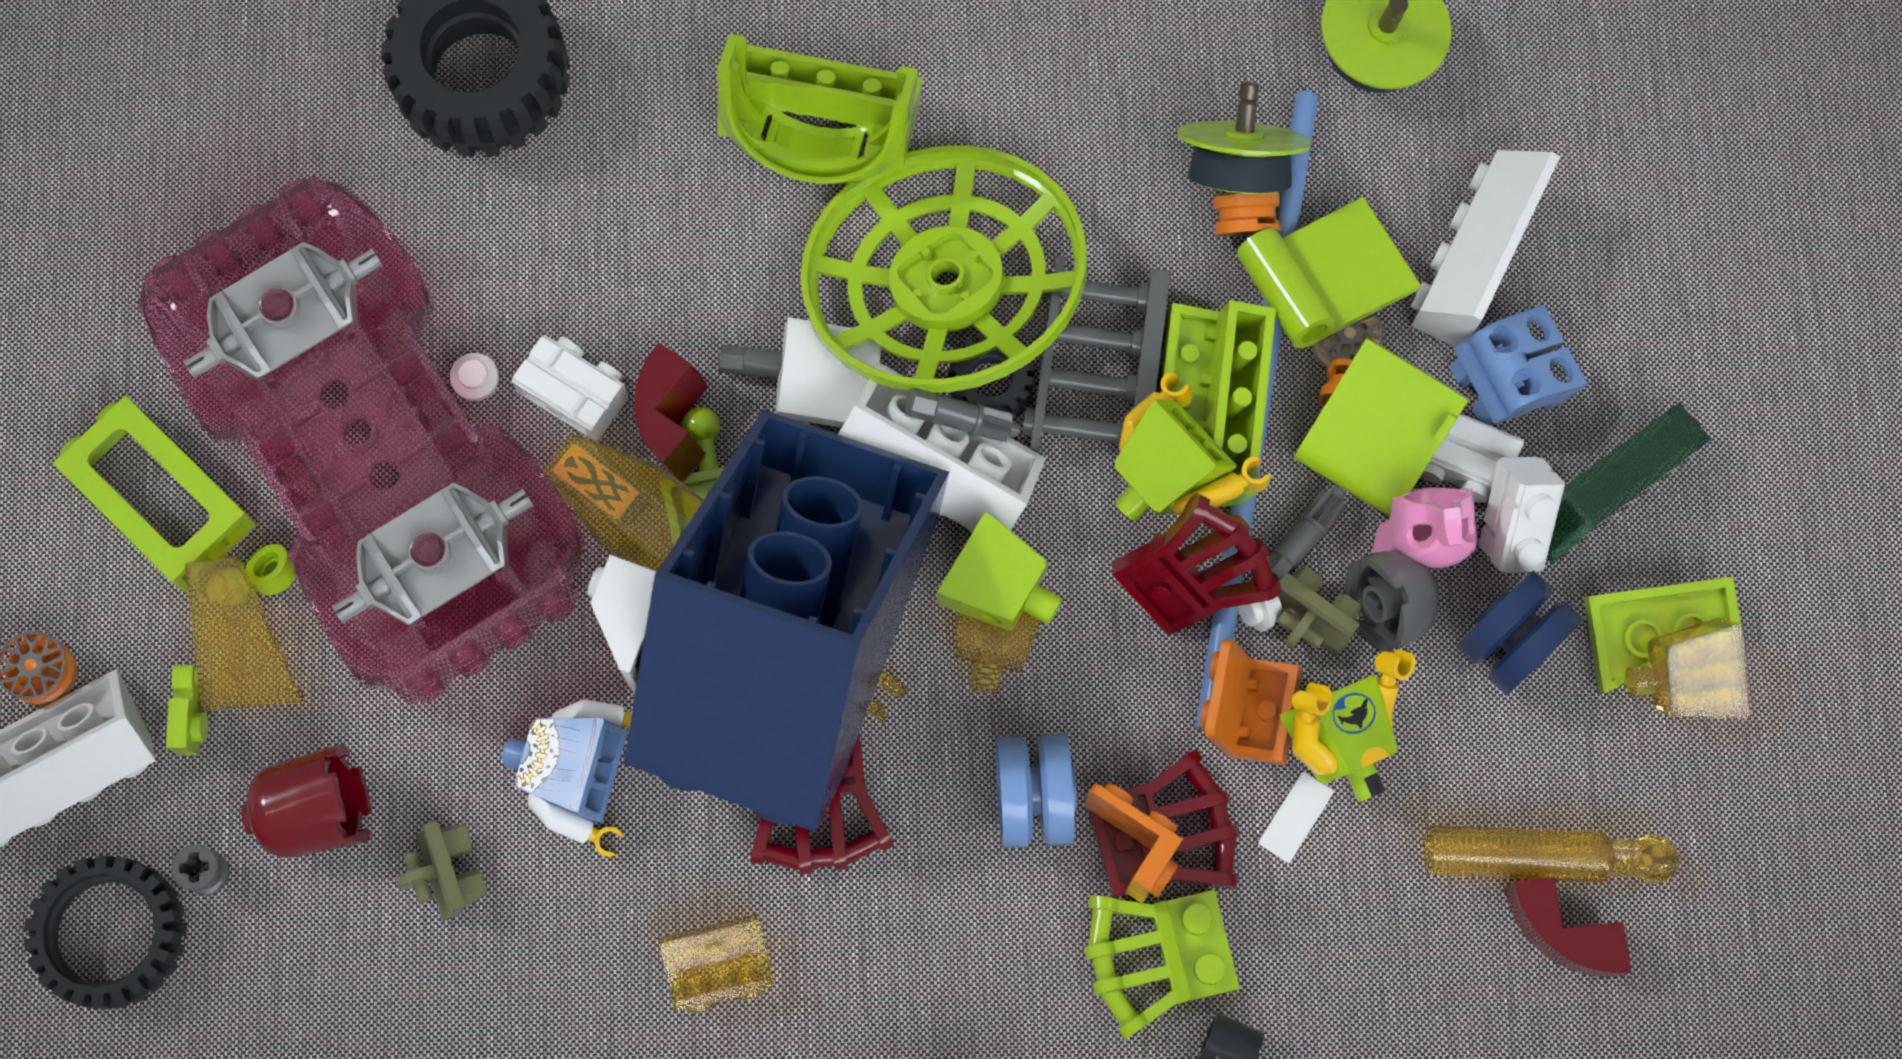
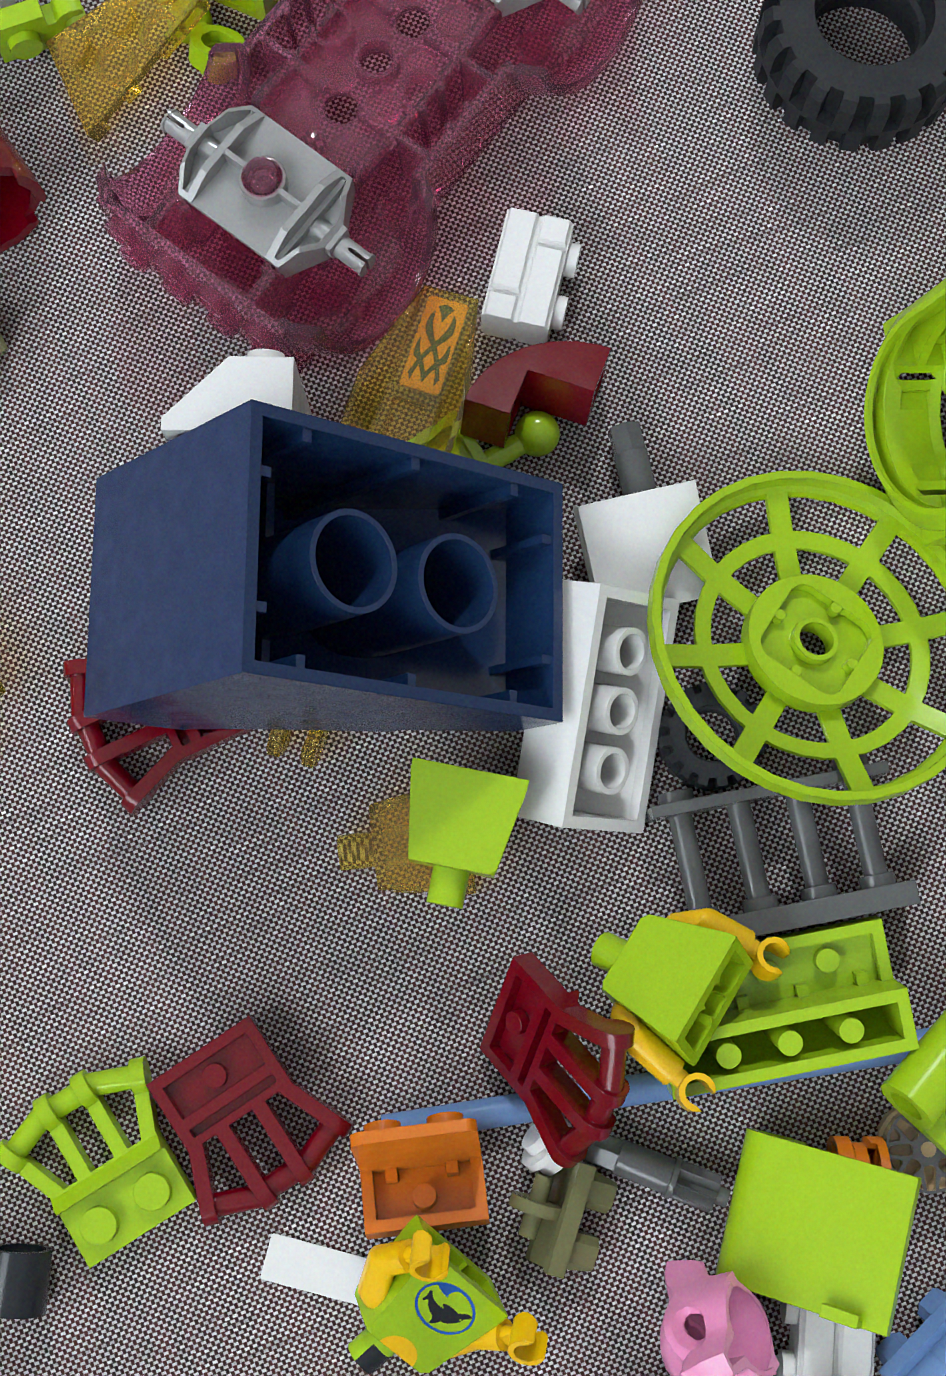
camera: 75 degrees right, 5 degrees up
(474, 377) = (505, 175): white plate -> none
(571, 767) = (87, 432): torso -> none
(961, 415) = (646, 715): dark grey piece -> none
(1036, 790) = (230, 948): medium blue wheel -> none
(1152, 831) = (175, 1126): orange bracket -> none
(1395, 598) = (612, 1312): dark grey cylinder -> none

